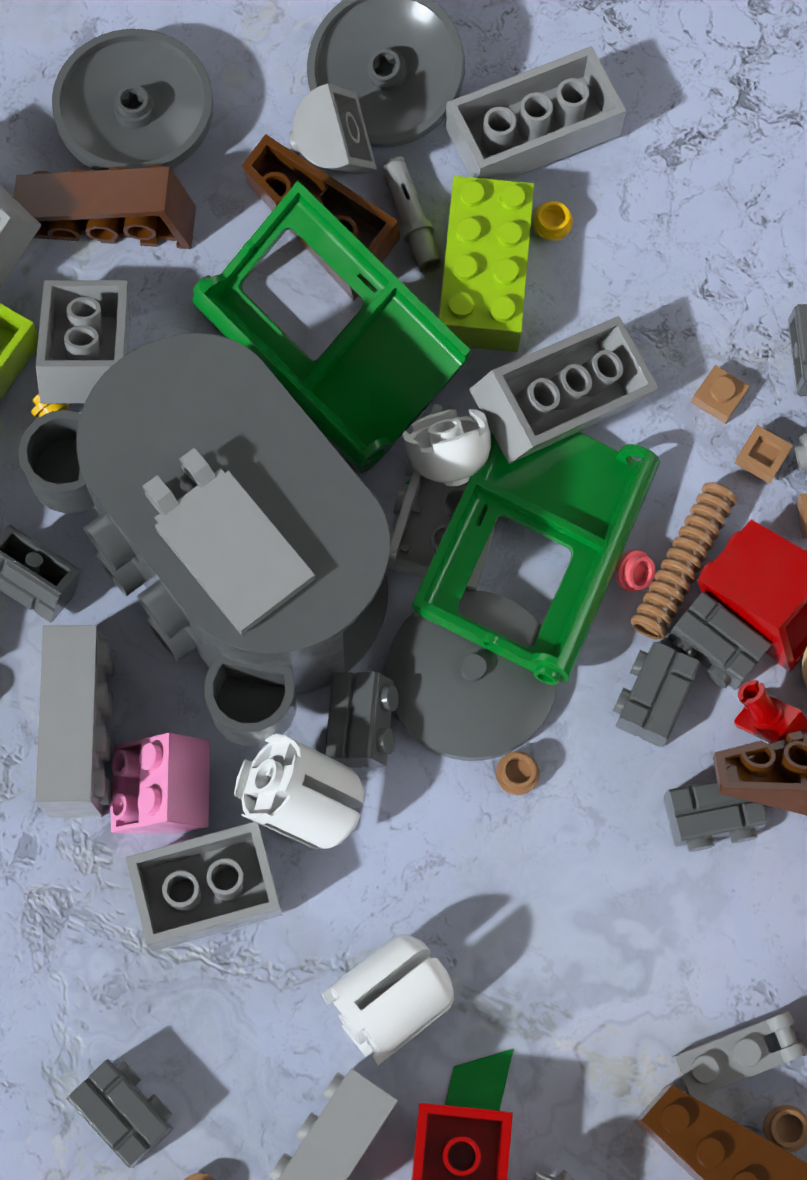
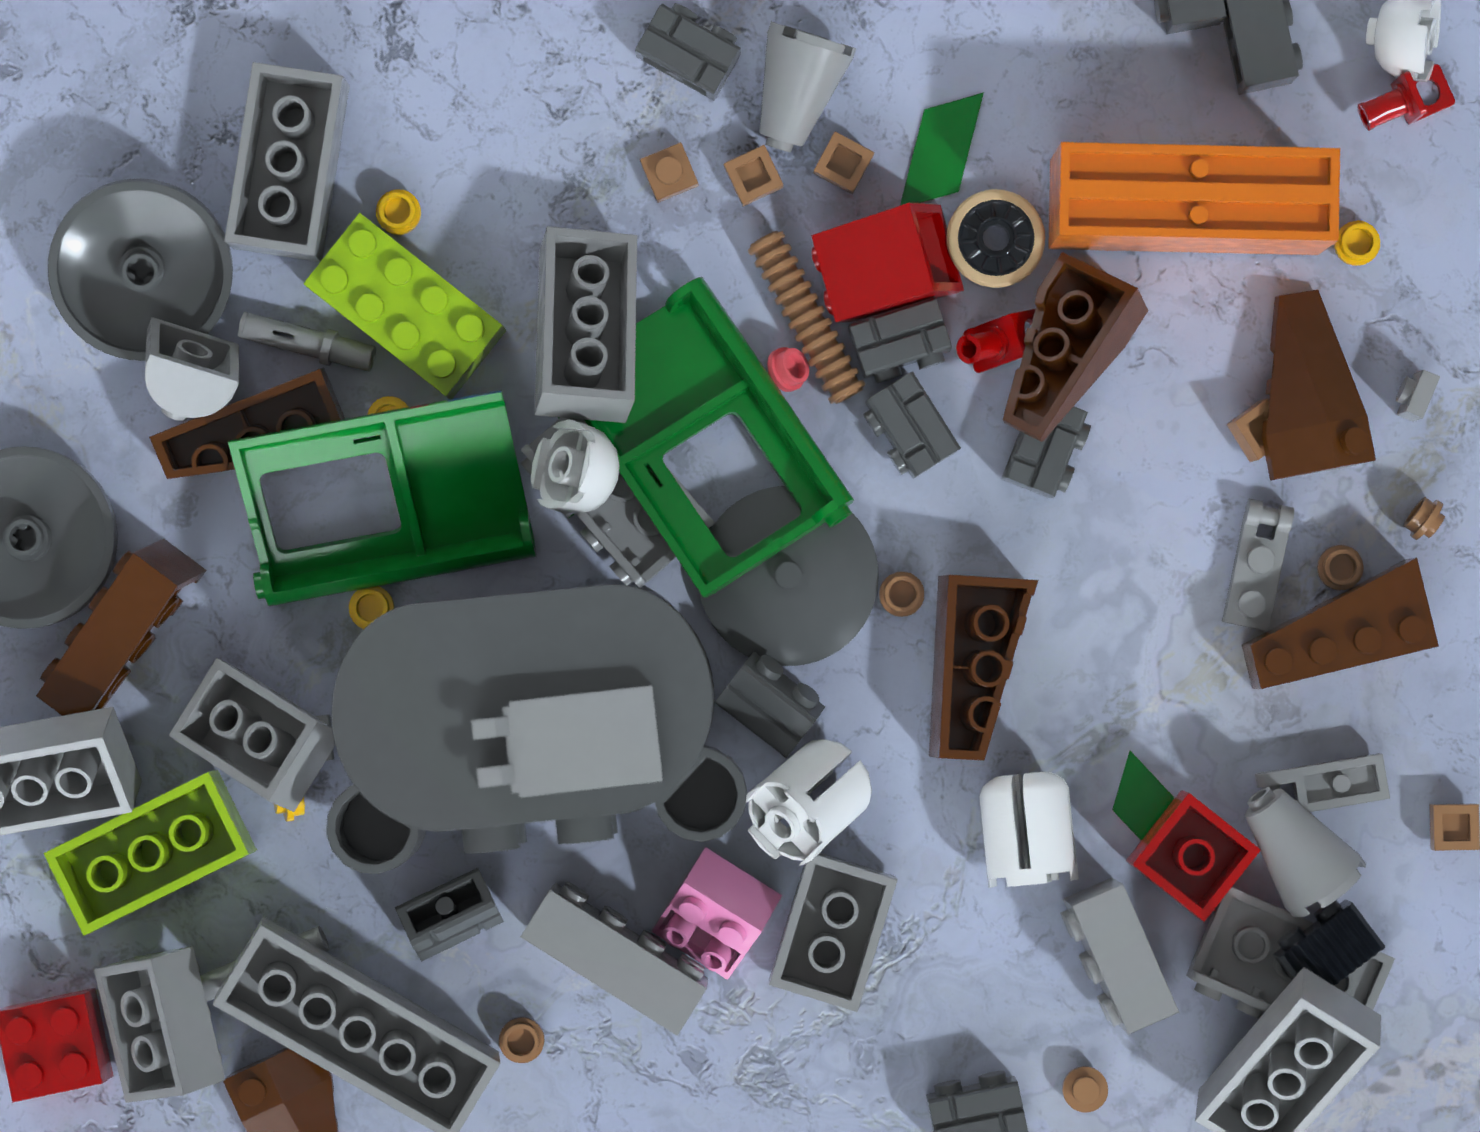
camera: 50 degrees left, 15 degrees up
(516, 855) = (973, 659): none -> reddish brown wedge

